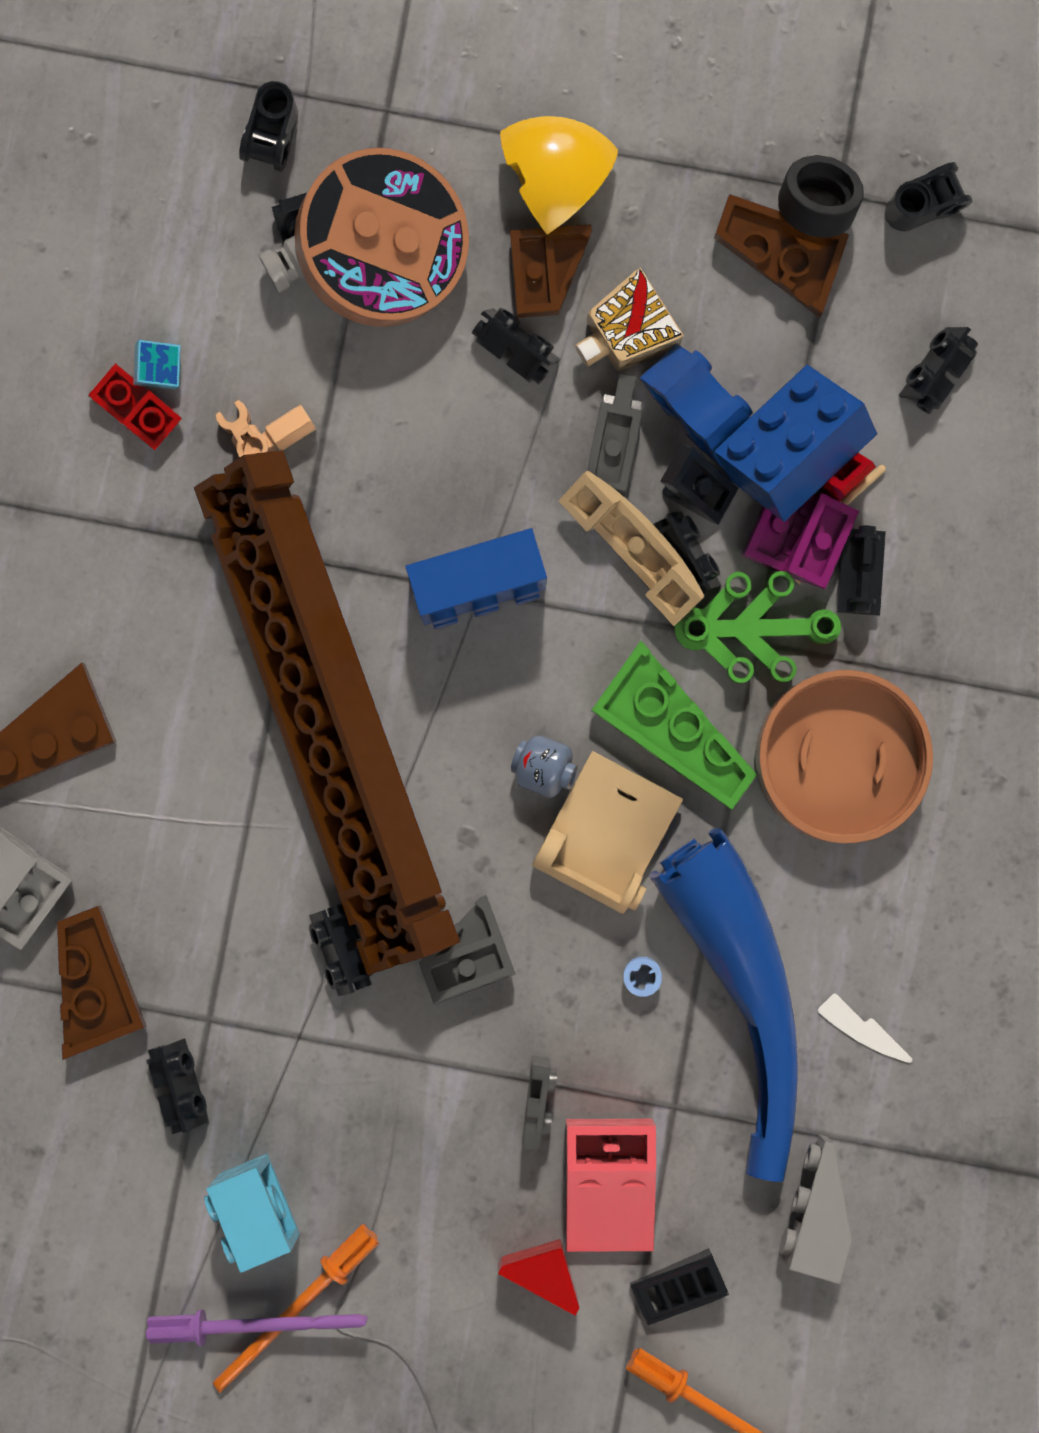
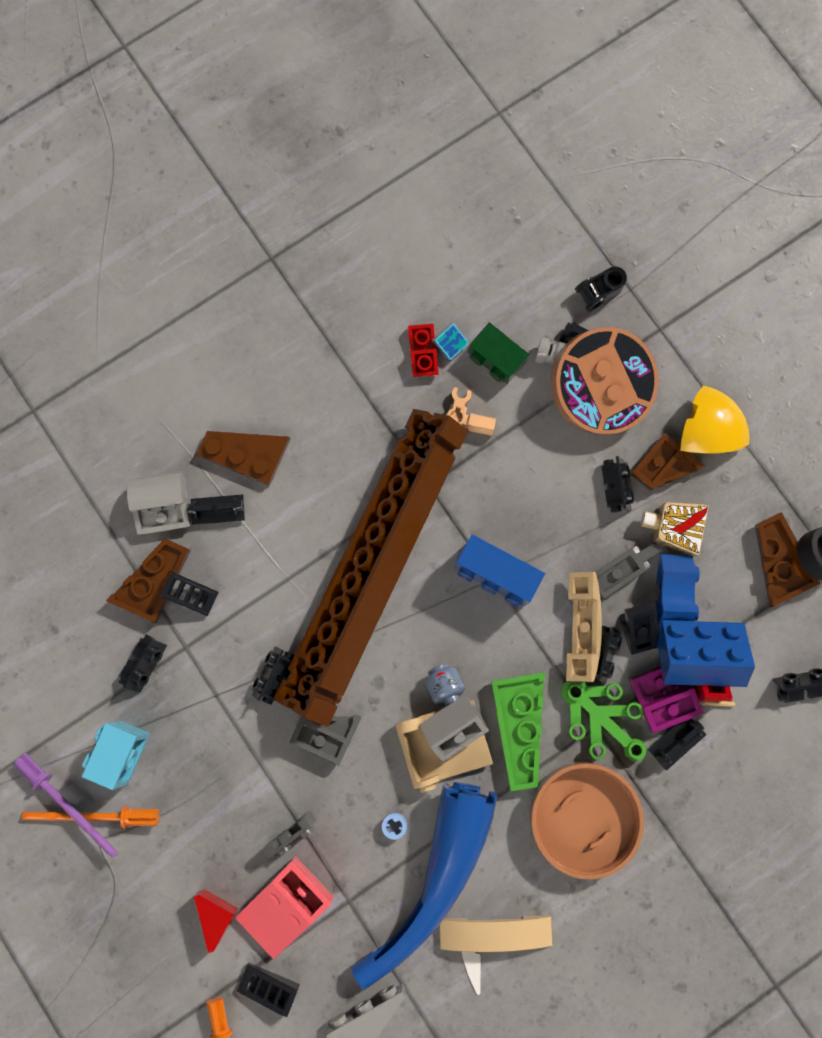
camera: 50 degrees right, 5 degrees down
(83, 829) = (217, 509): none -> black hinge
(116, 967) = (168, 584): none -> black slope
(226, 326) = (497, 354): none -> dark green brick
(600, 802) = (458, 723): none -> light grey brick
(866, 978) = (496, 934): none -> tan slope

